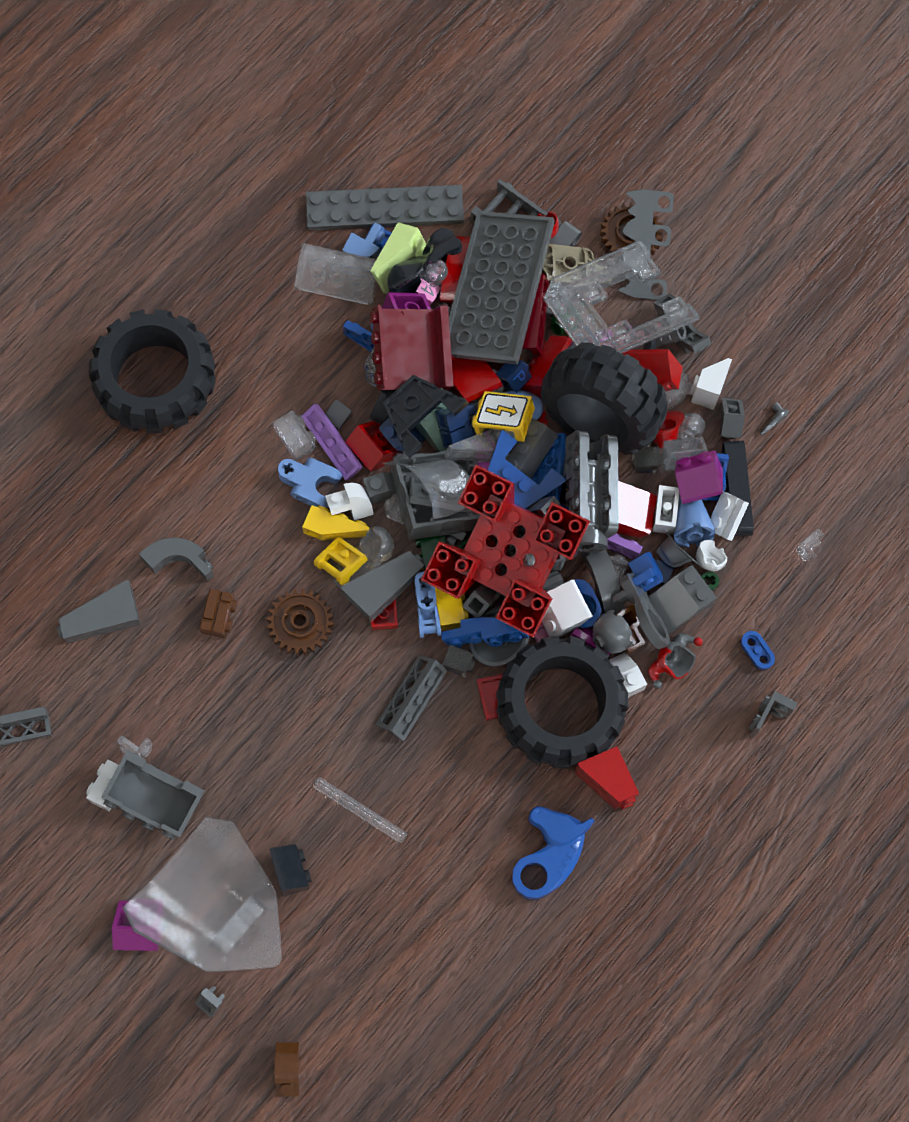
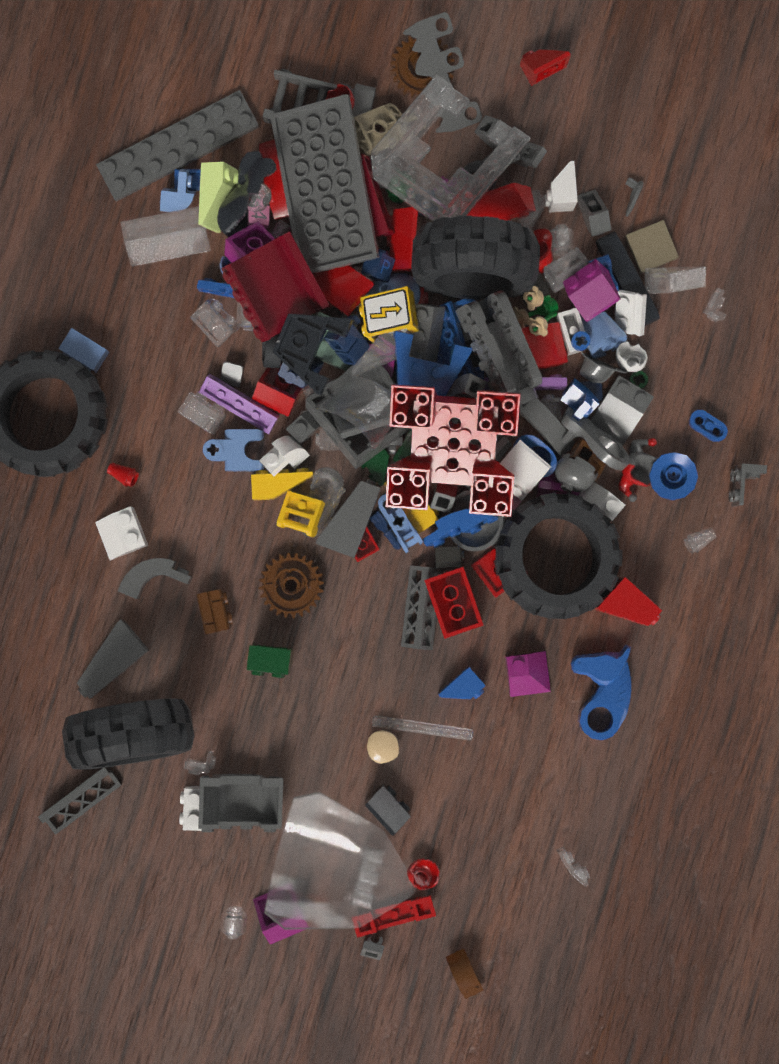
camera: 25 degrees left, 15 degrees up
(81, 675) = (128, 733): none -> black tyre
(89, 912) = (233, 922): none -> clear head
(169, 507) = (121, 533): none -> white slope
(198, 459) = (125, 475): none -> red cone
(217, 335) = (83, 350): none -> medium blue brick
(246, 677) = (270, 660): none -> dark green brick
(250, 980) = (407, 911): none -> red slope
(294, 949) = (423, 874): none -> red hair
(313, 807) = (382, 746): none -> tan hair
(344, 363) = (215, 321): none -> clear bracket
(410, 605) = (382, 525): none -> dark blue piece
(417, 787) = (463, 686): none -> blue slope
(444, 703) = (453, 602): none -> red slope
(445, 1019) = (576, 870): none -> clear slope
(484, 803) = (527, 673): none -> magenta slope
(649, 480) = (545, 306): none -> tan plant
(668, 523) = (578, 335): none -> blue bush
(698, 670) = (674, 486): none -> blue hat
(703, 751) = (698, 540): none -> clear cone
(741, 274) = (543, 63): none -> red slope
(772, 470) = (651, 246): none -> dark tan tile
(782, 506) = (674, 279): none -> clear slope

